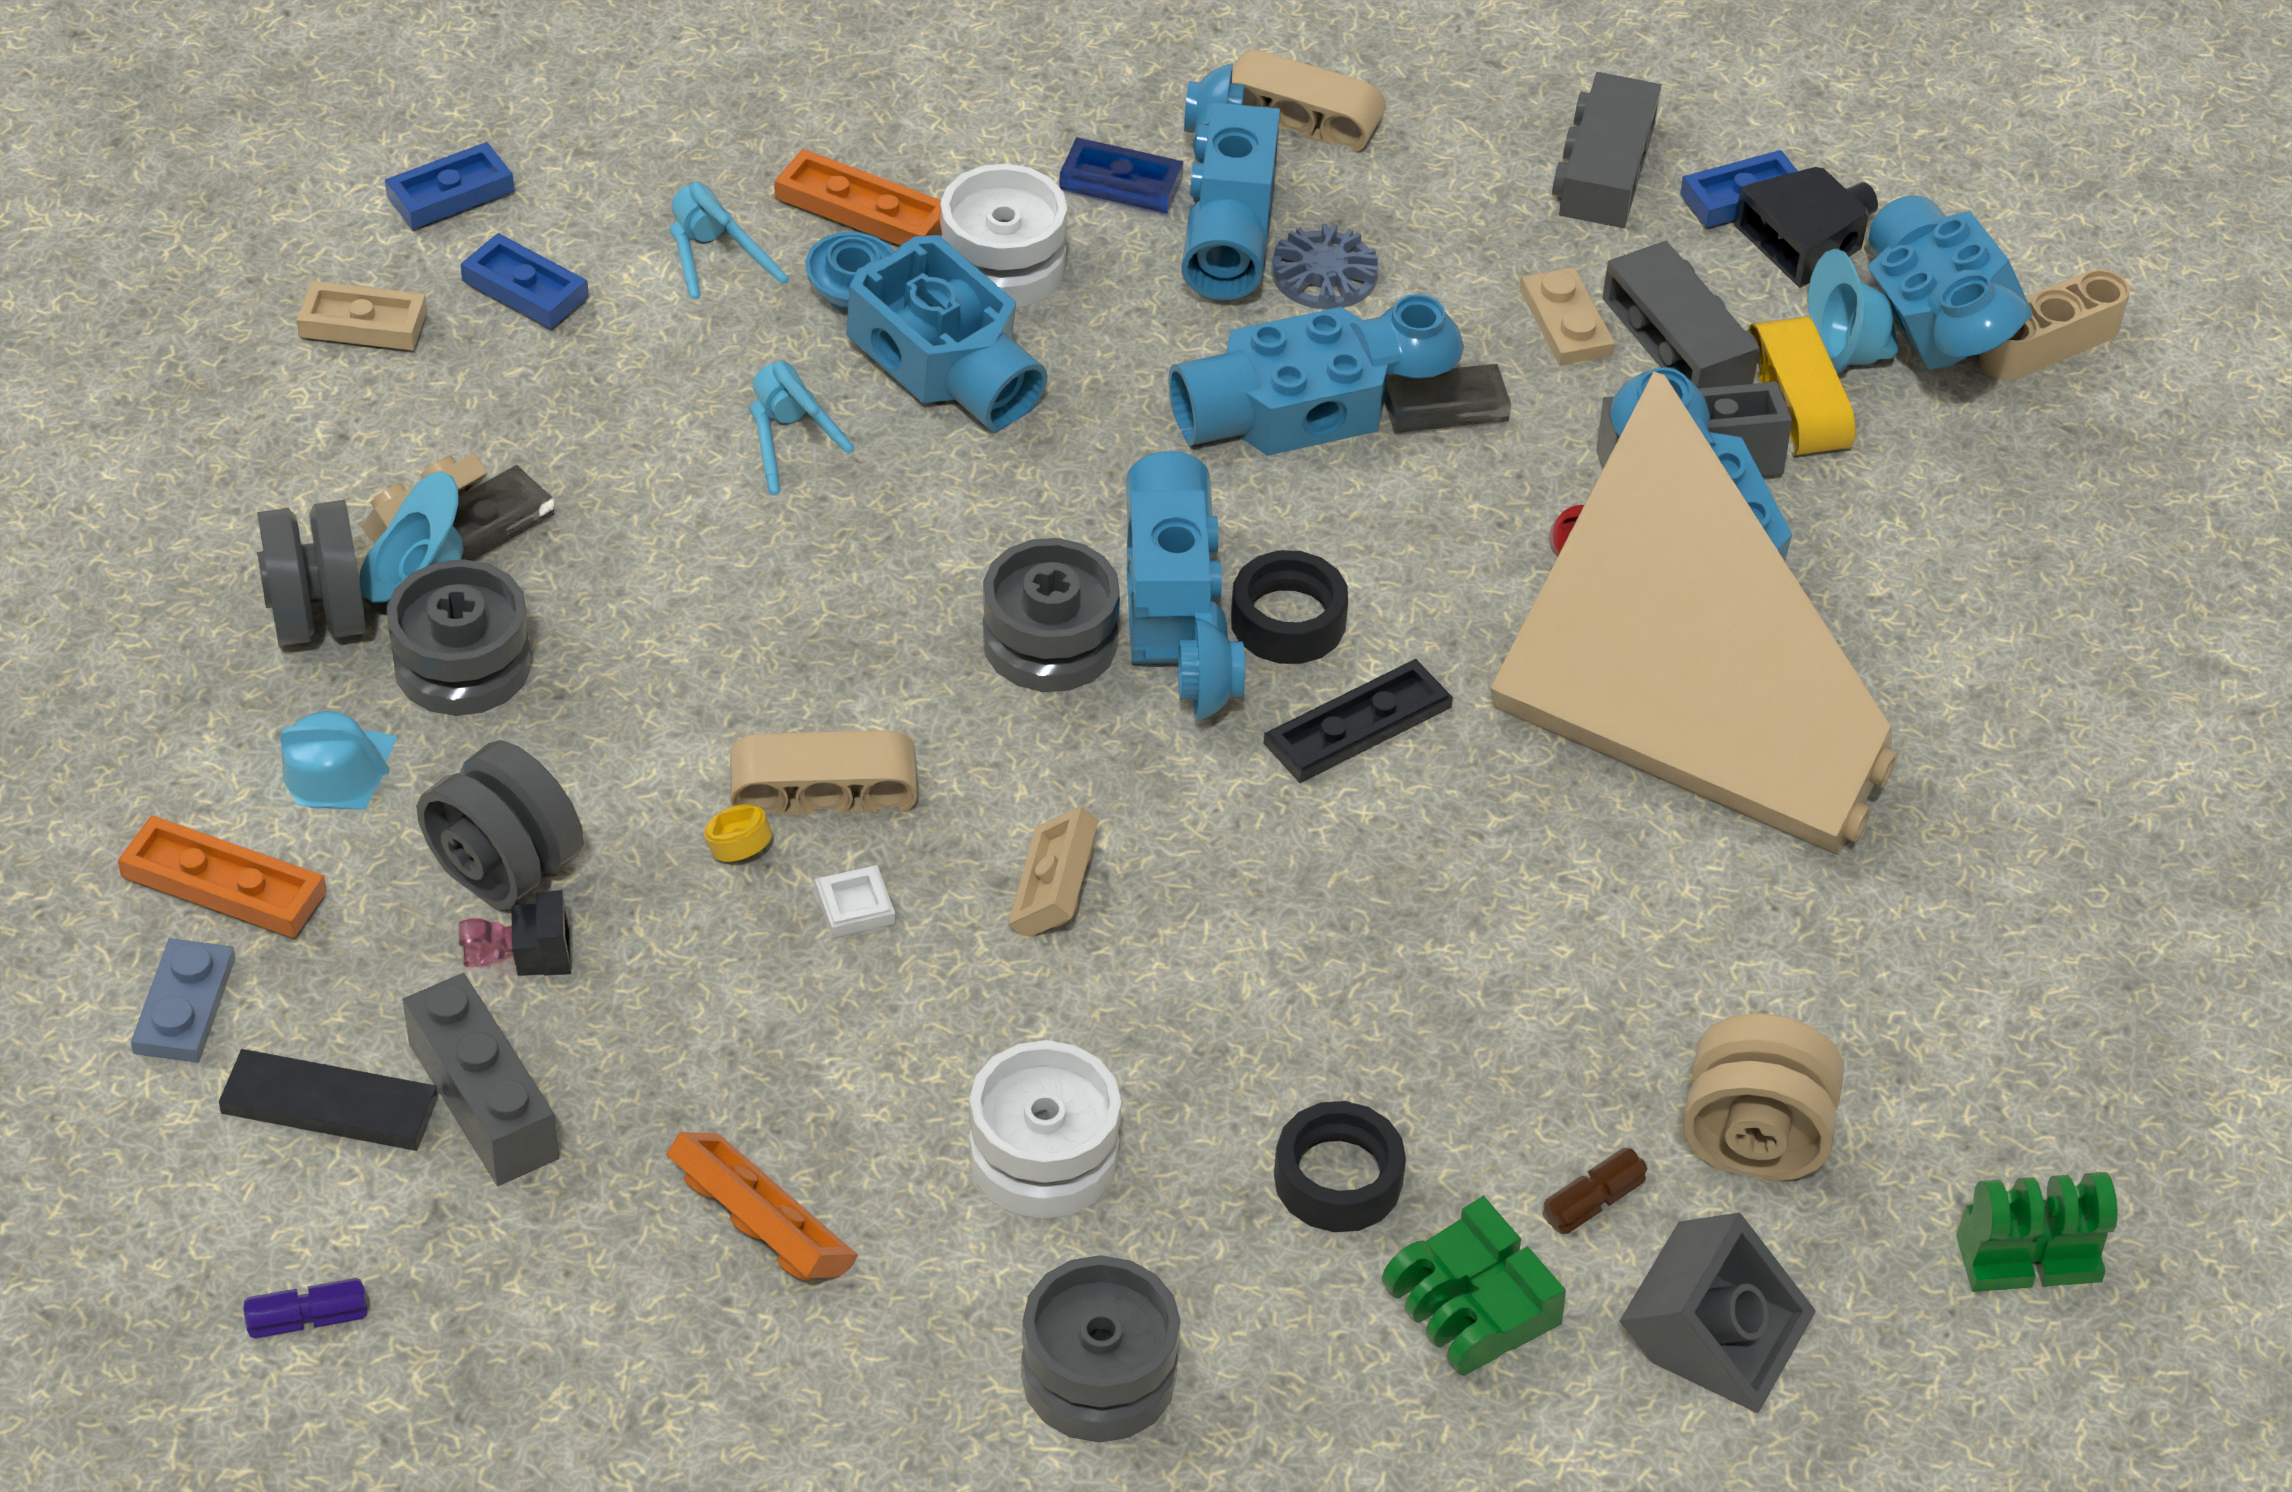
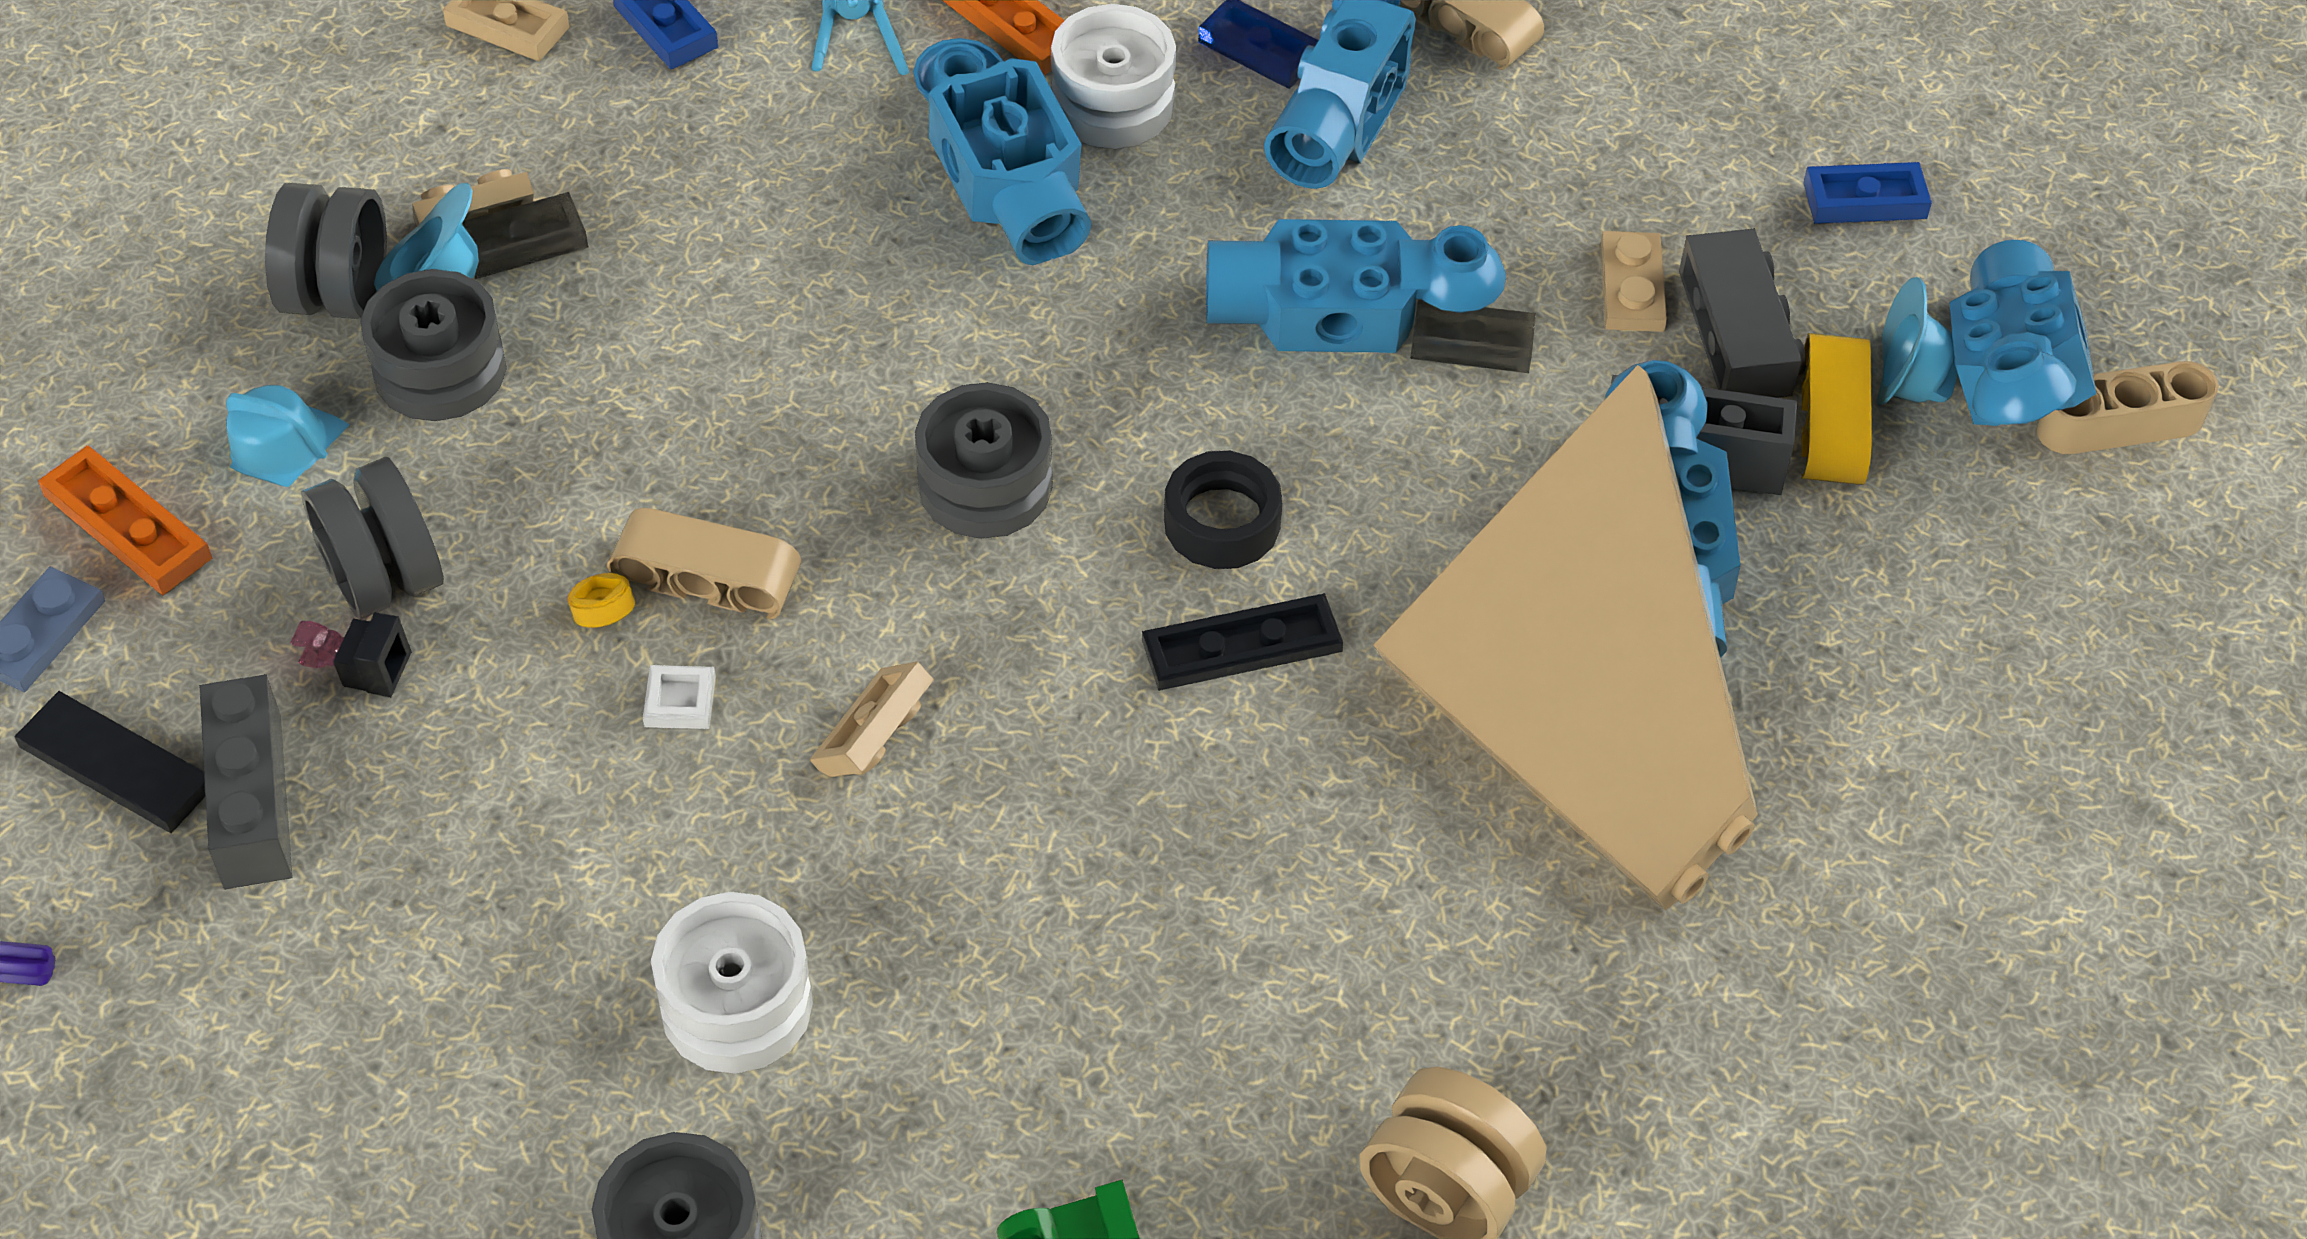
camera: 20 degrees right, 5 degrees up
(761, 1206) = (442, 981): orange plate -> none
(785, 399) = (844, 188): medium azure plant -> none
(1174, 580) = (1110, 452): dark azure brick -> none
(1324, 267) = (1416, 177): sand blue wheel -> none
(1328, 1207) = (1014, 1150): black tyre -> none
(1583, 1196) = (1238, 1205): reddish brown piece -> none
(1606, 149) = (1744, 123): dark grey brick -> none
(1803, 217) = (1913, 236): black torso -> none

